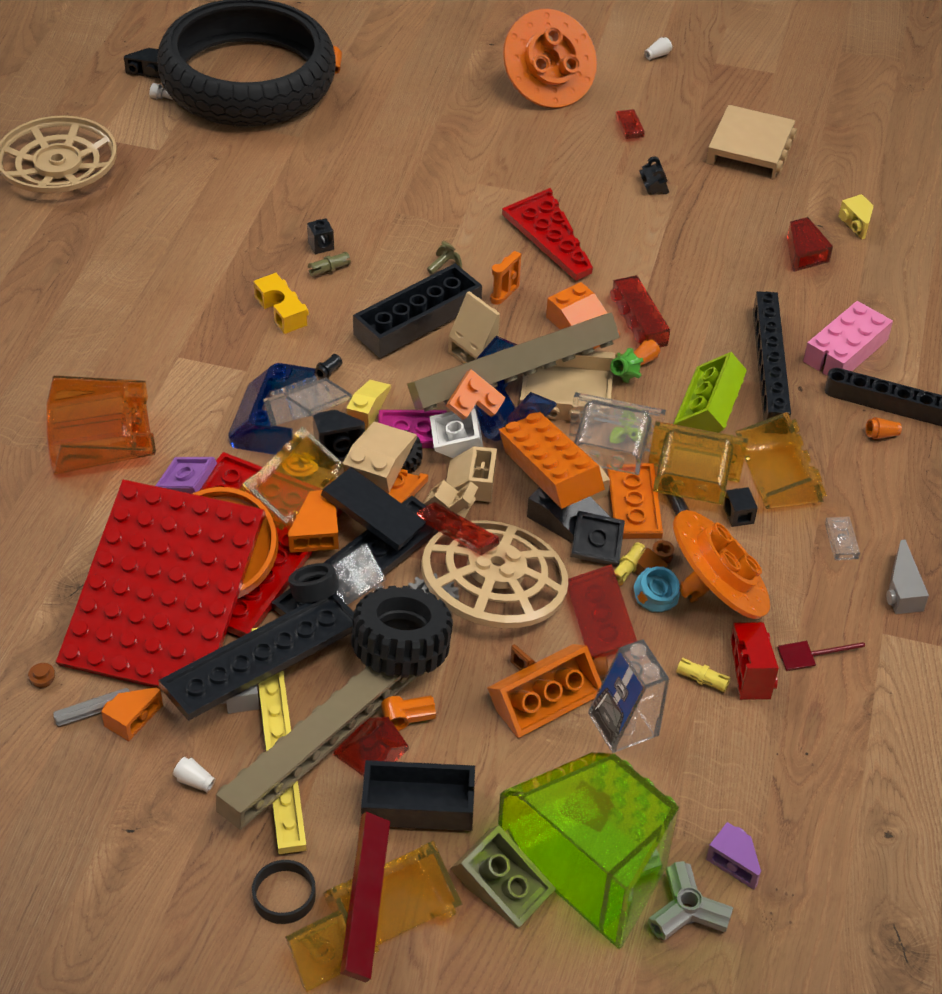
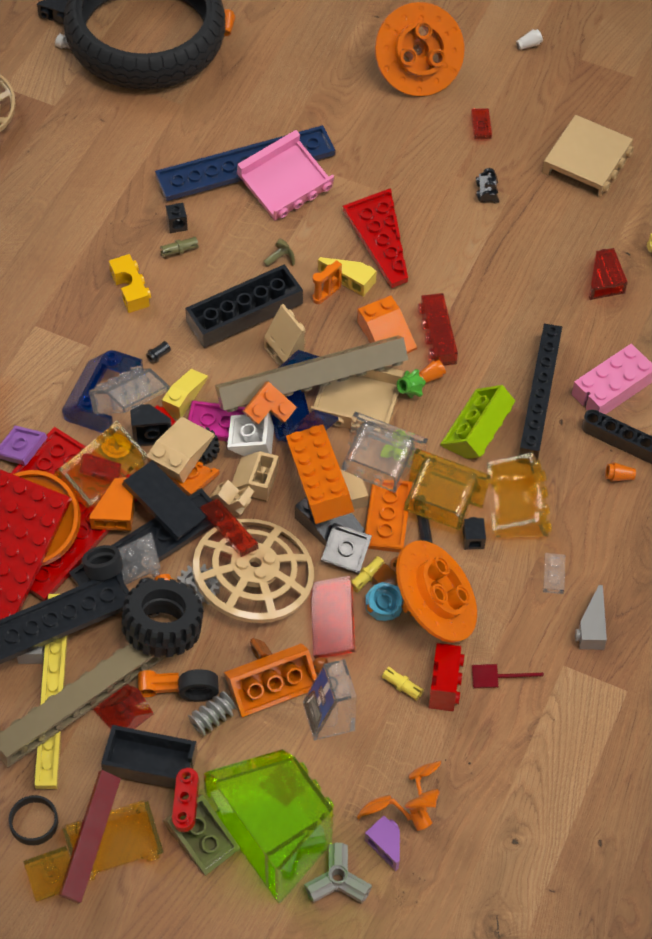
camera: 10 degrees right, 10 degrees up
(288, 483) = (99, 467): none -> clear red plate
(382, 181) = (222, 167): none -> dark blue plate
(430, 186) = (284, 176): none -> bright pink panel
(456, 694) = (198, 685): none -> black tyre
(483, 840) = (188, 806): none -> red plate
(484, 735) = (212, 712): none -> light grey piece
(534, 272) = (354, 274): none -> light yellow slope
(766, 814) = (417, 806): none -> orange plant

